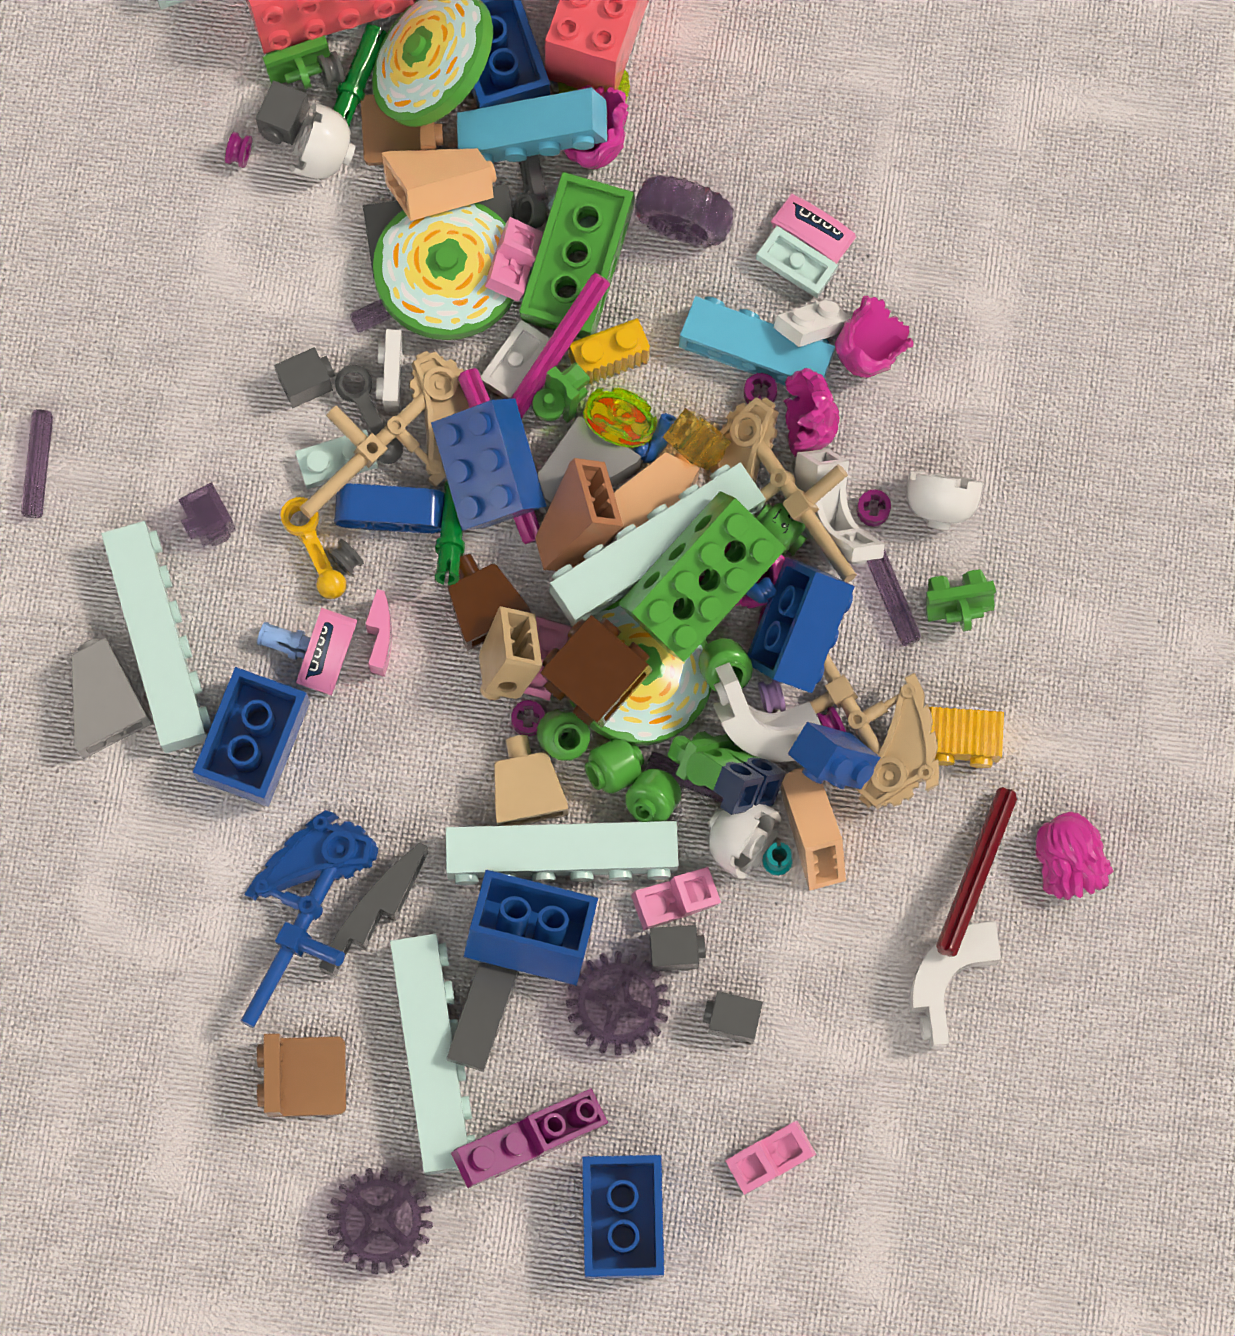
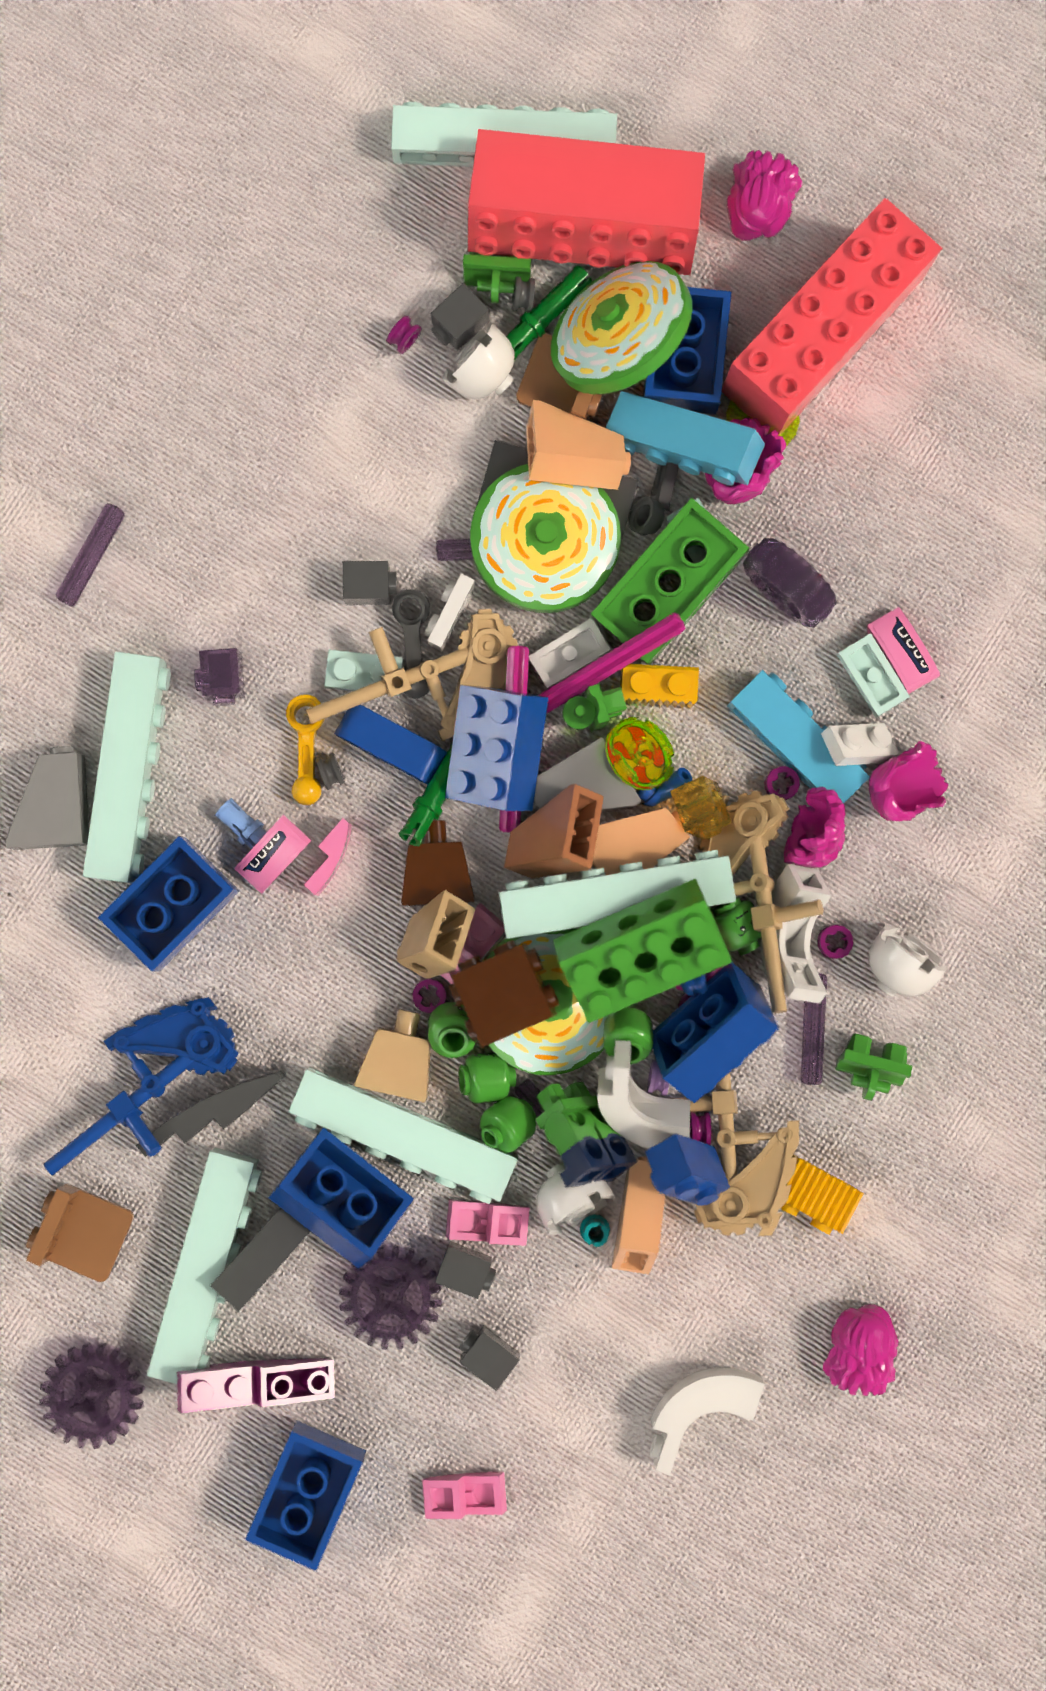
camera: 25 degrees right, 10 degrees up
(513, 259) = (609, 559): bright pink slope -> none
(976, 872) = (768, 1329): dark red axle -> none

